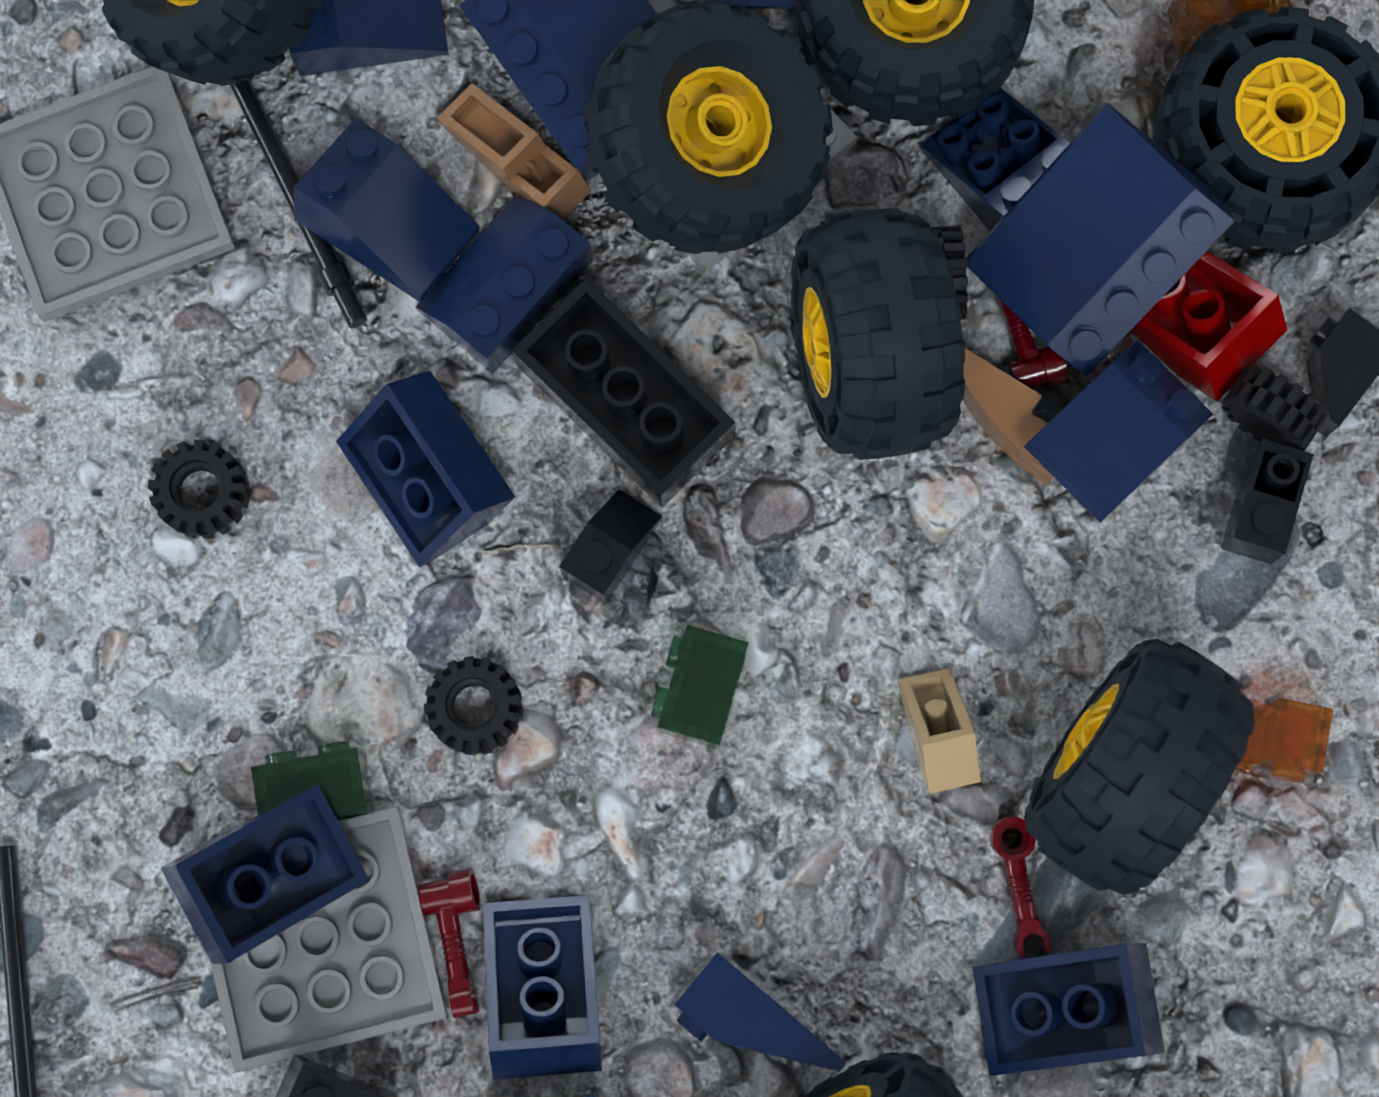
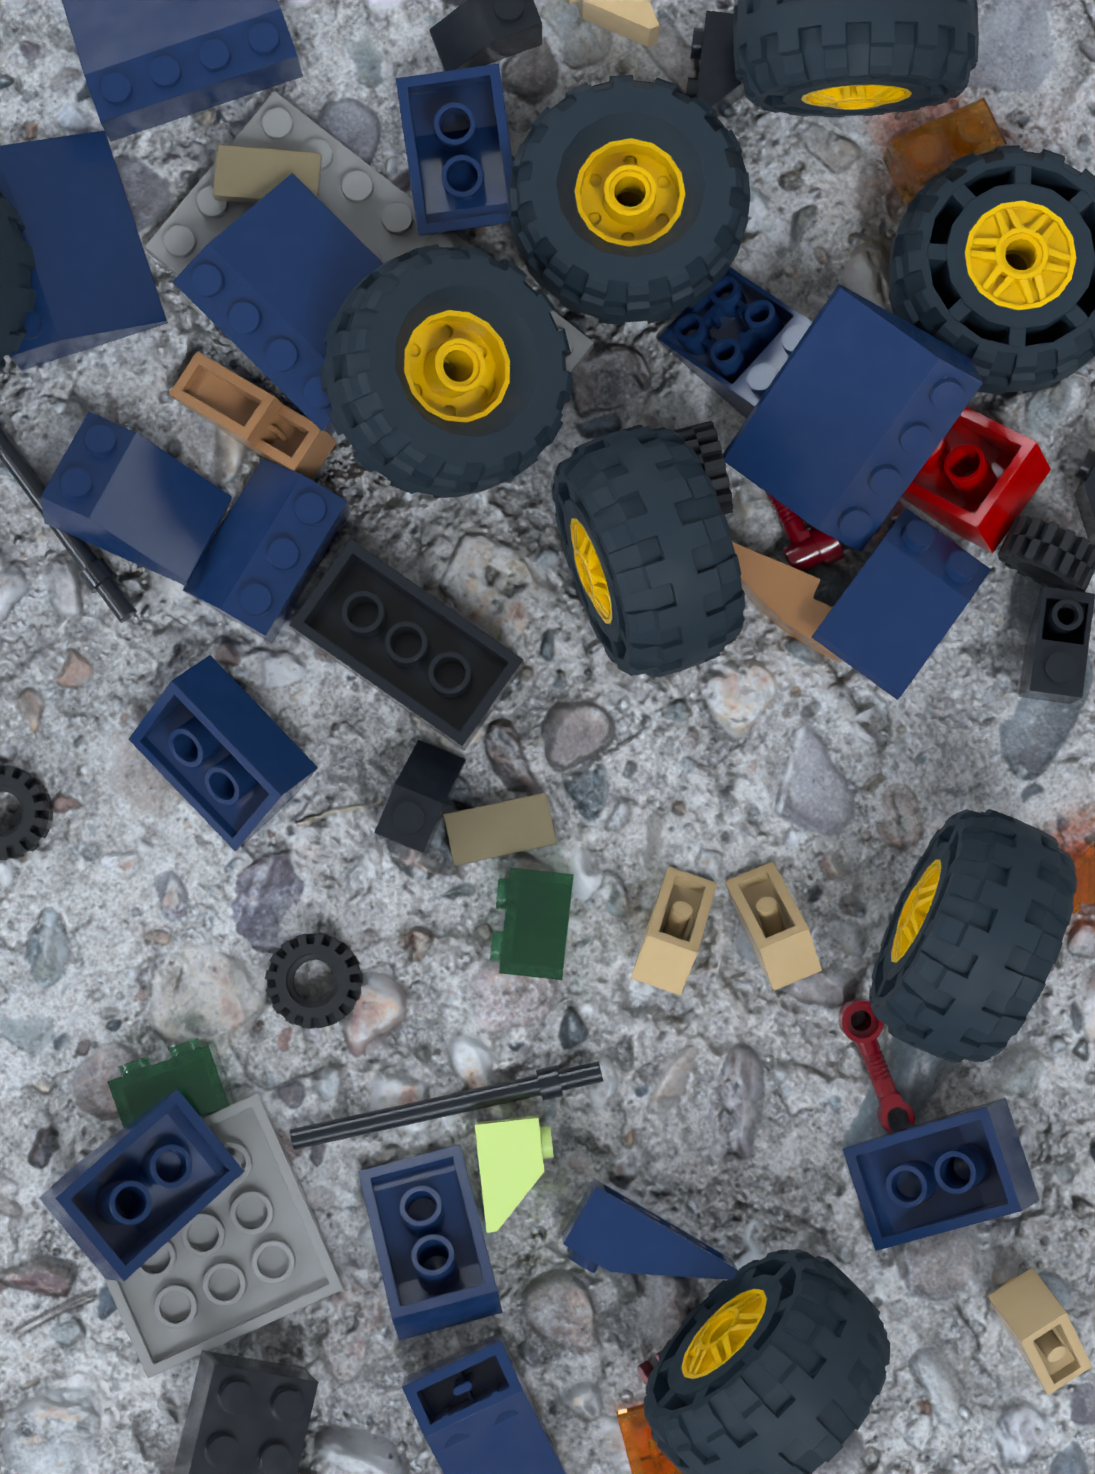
camera: 15 degrees left, 5 degrees up
(448, 900) = (323, 1174): dark red brick -> none
(635, 920) = (510, 1163): none -> yellowish green slope
(684, 590) = (500, 829): none -> dark tan tile
(687, 848) = (547, 1083): none -> black bar
(839, 718) = (674, 931): none -> tan slope

